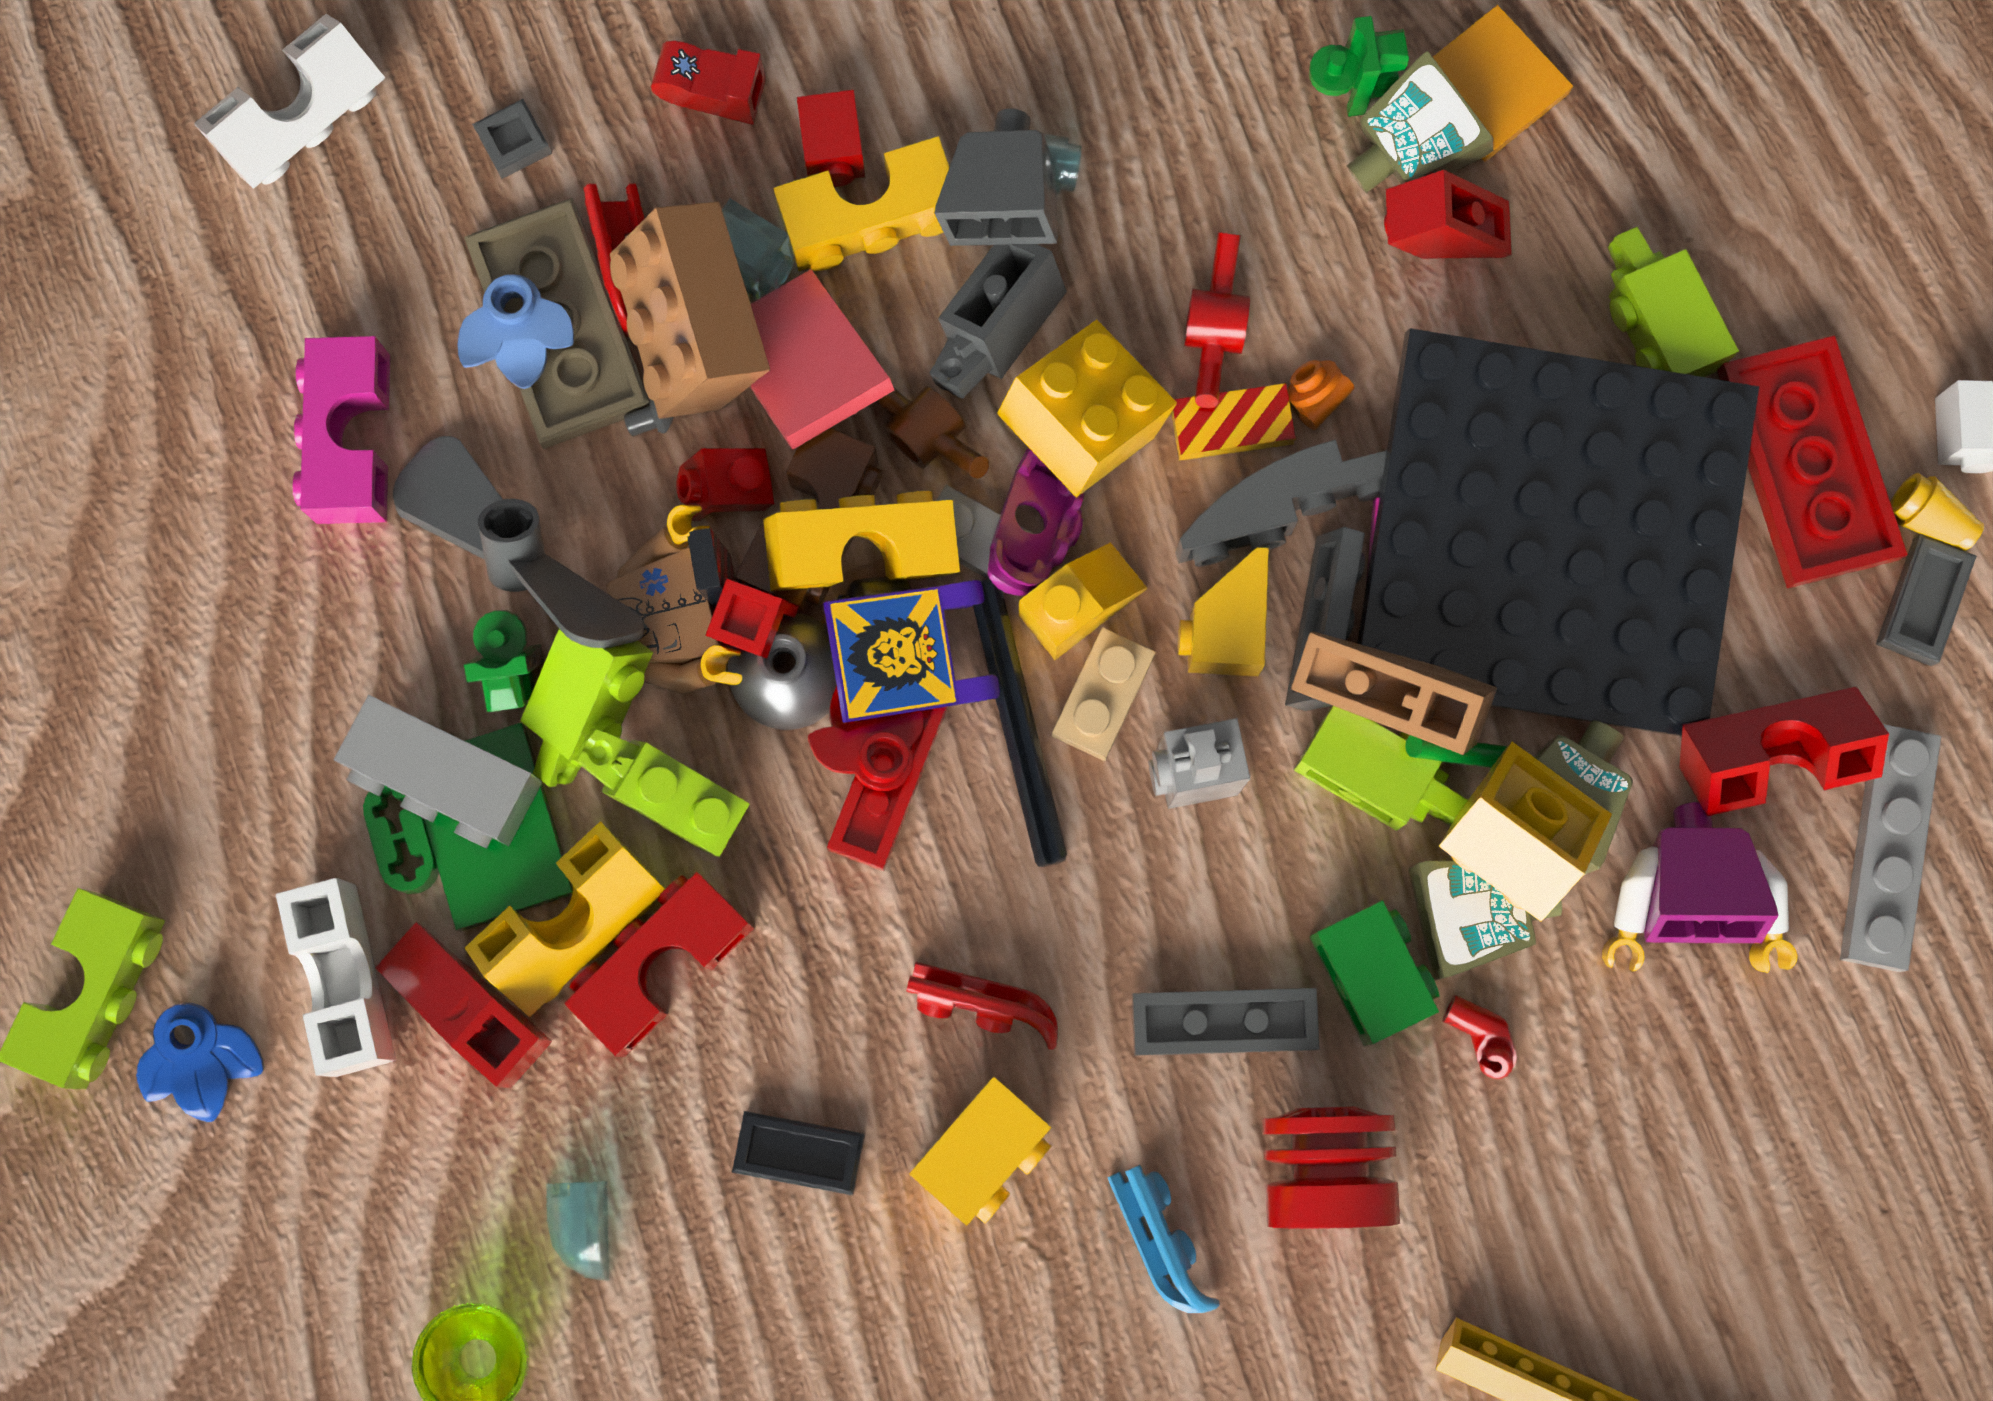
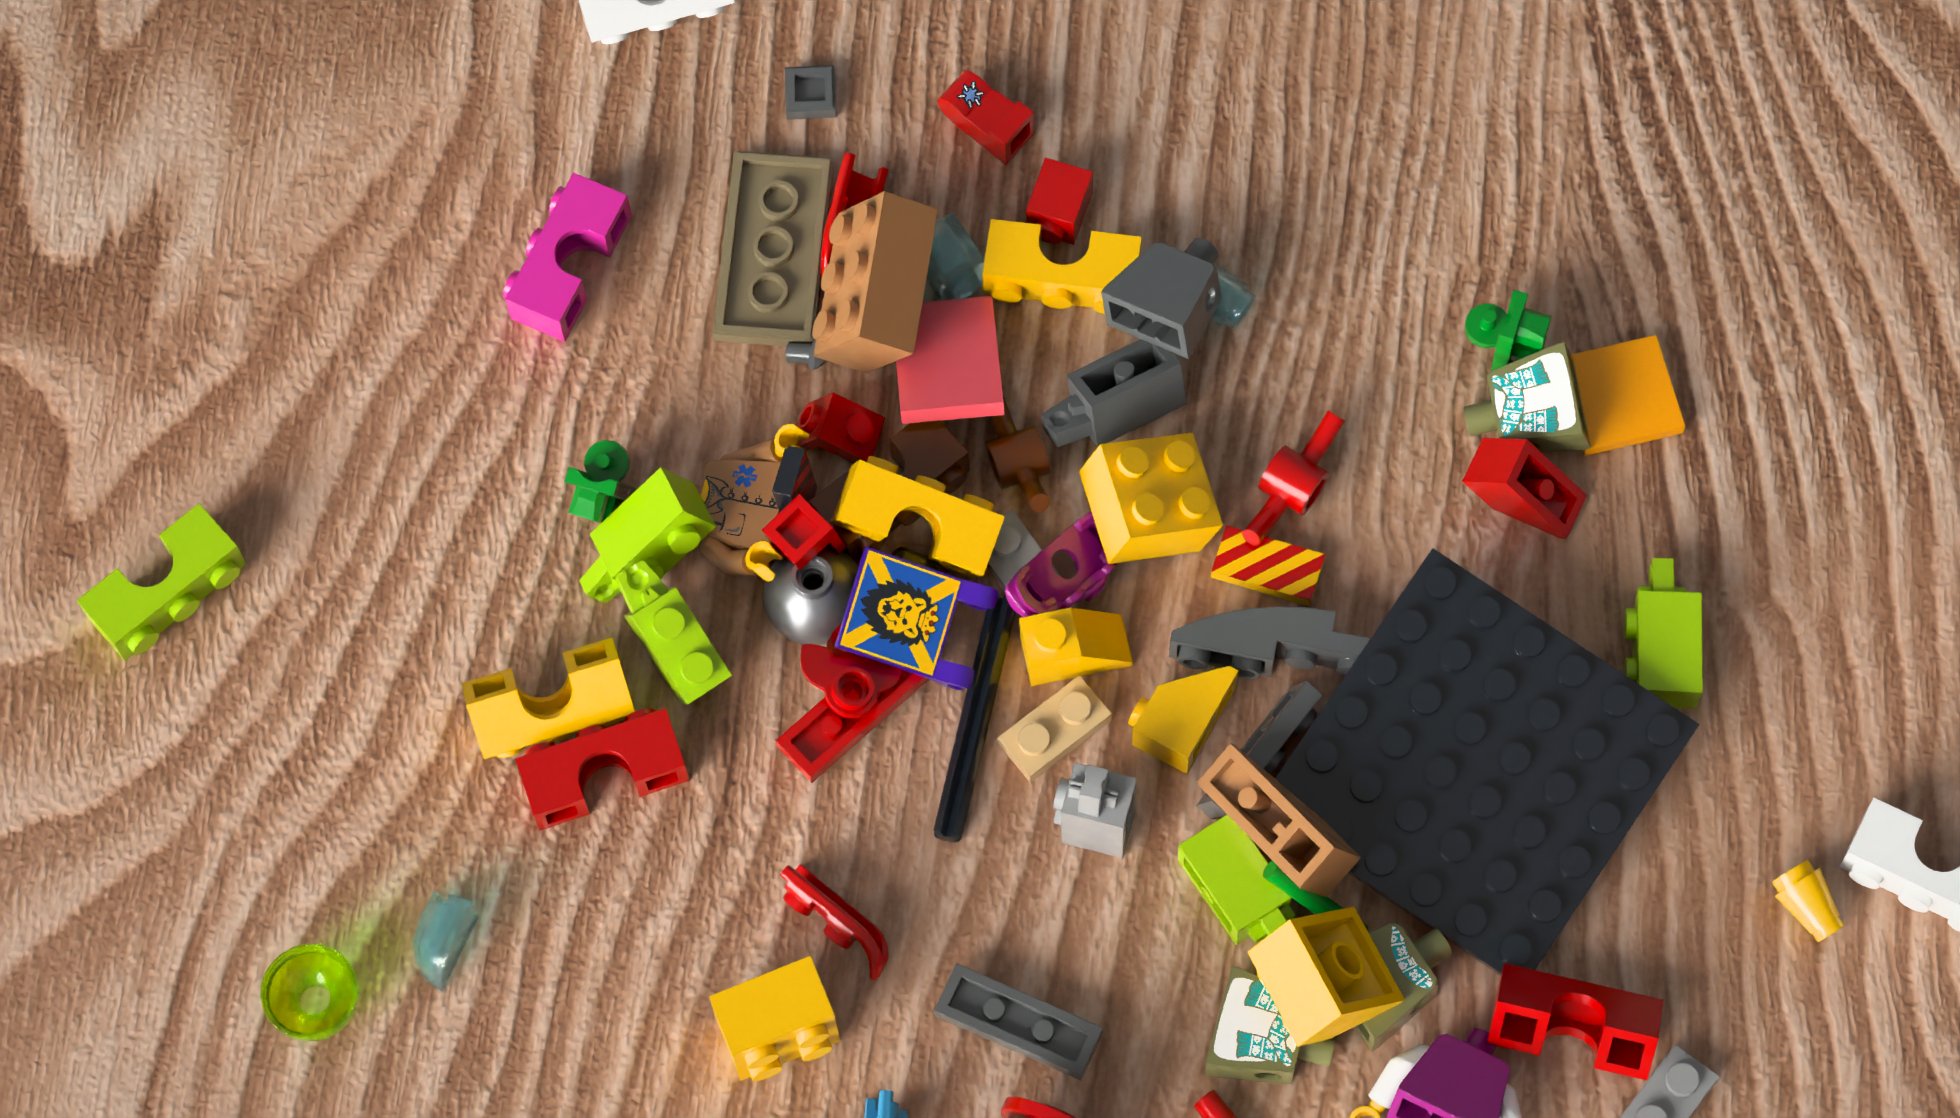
camera: 30 degrees right, 10 degrees down
(196, 1071) = (217, 684): blue plate -> none
(330, 939) = (364, 633): white arch -> none
(387, 844) = (443, 581): green beam -> none
(436, 773) = (507, 544): light grey brick -> none
(456, 501) = (626, 350): dark grey piece -> none
(463, 1007) = (438, 730): red slope -> none
(514, 339) = (735, 246): medium blue plate -> none
(520, 875) = (526, 605): green tile -> none
(798, 1153) = (636, 964): black tile -> none
(1318, 390) = (1349, 573): orange plate -> none
(1376, 973) = (1156, 1040): green brick -> none
(1815, 465) = (1726, 813): red plate -> none
(1926, 600) = (1768, 967): dark grey tile -> none

